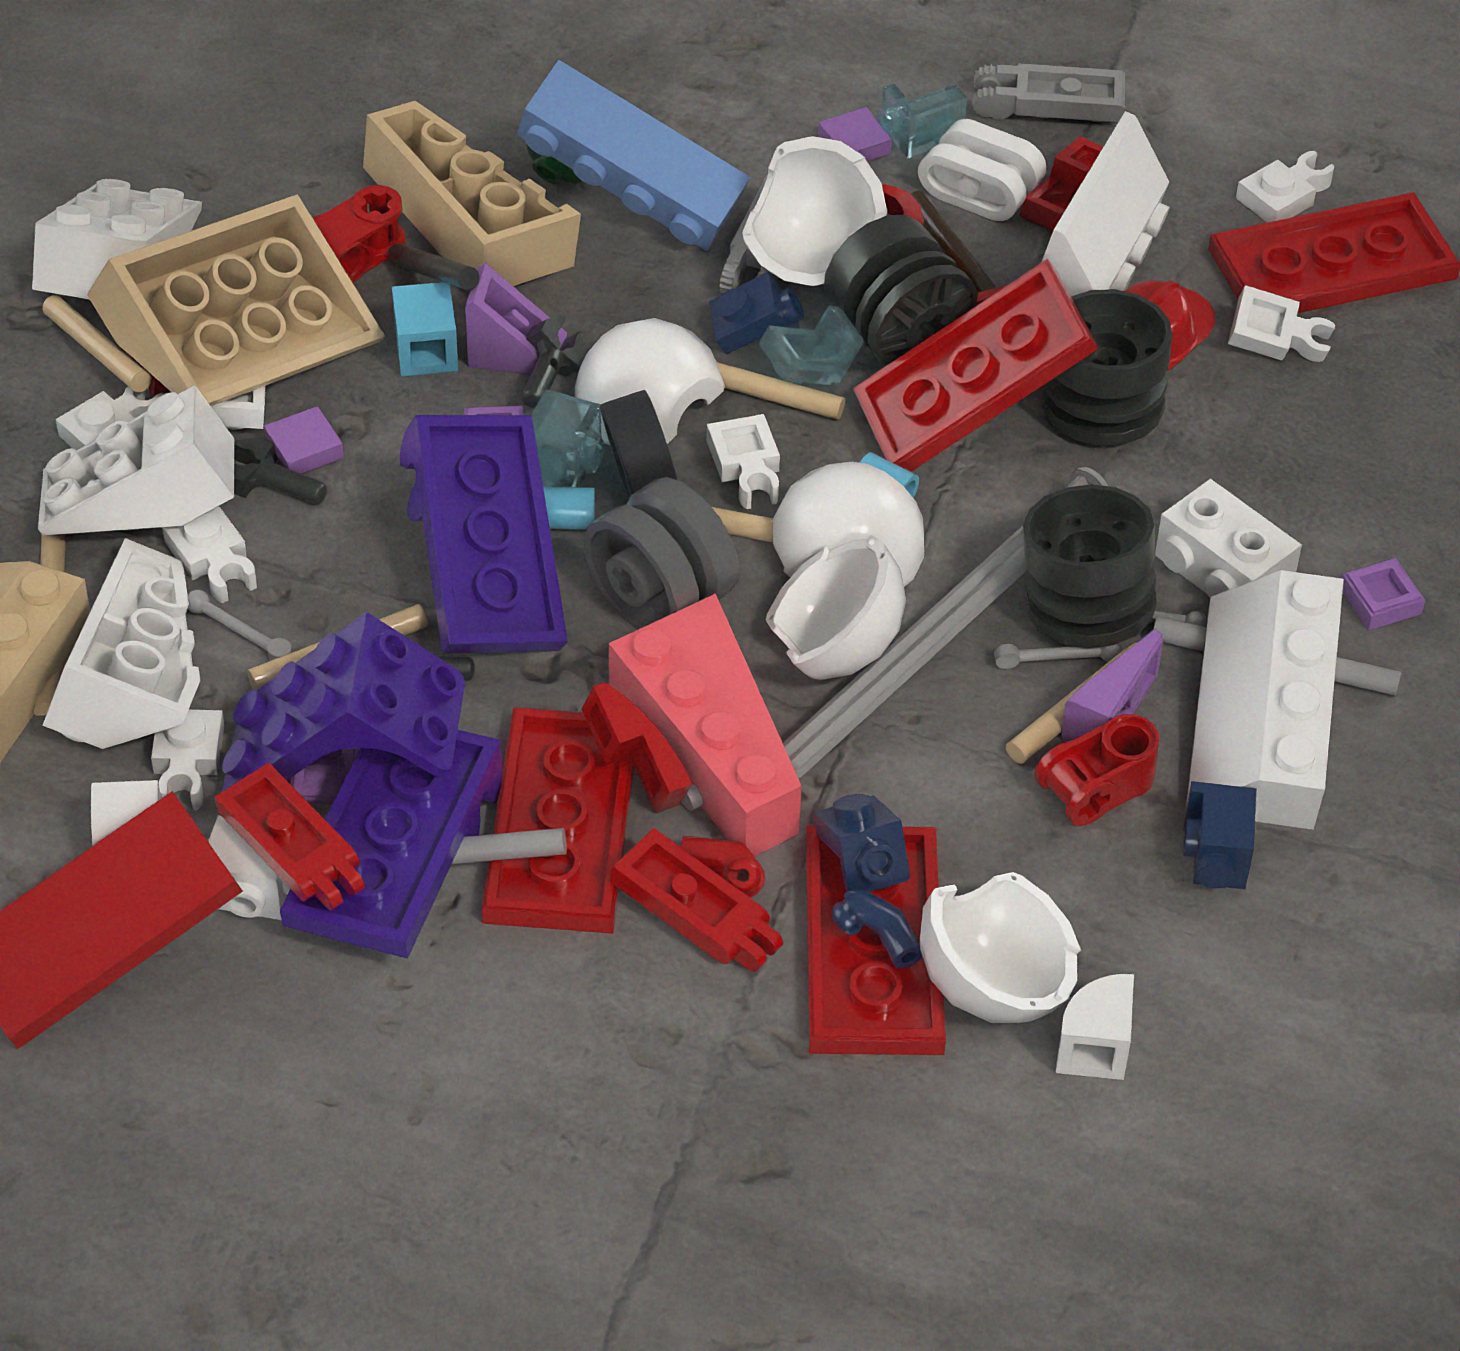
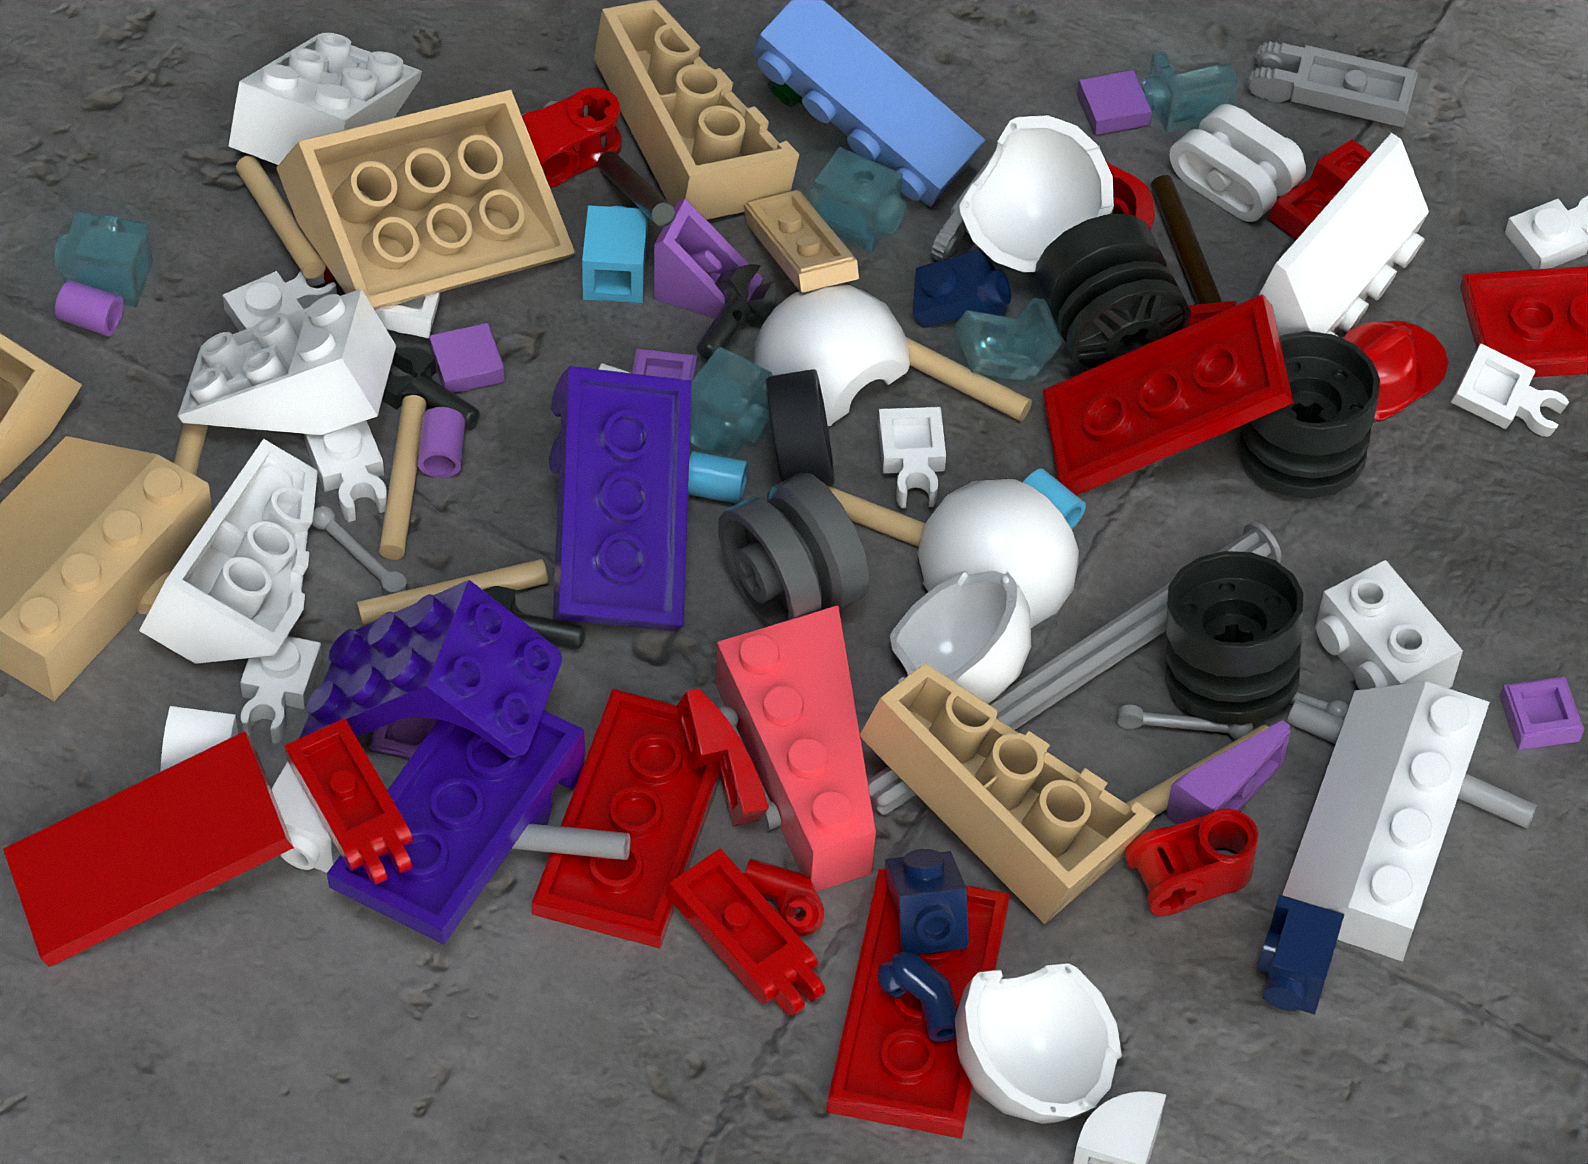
camera: 10 degrees right, 5 degrees up
(266, 555) = (402, 478): none -> tan bar
(297, 517) = (441, 442): none -> medium lavender hinge
(598, 290) = (801, 241): none -> tan tile
(640, 250) = (858, 198): none -> clear light blue brick
(908, 732) = (1002, 791): none -> tan wedge

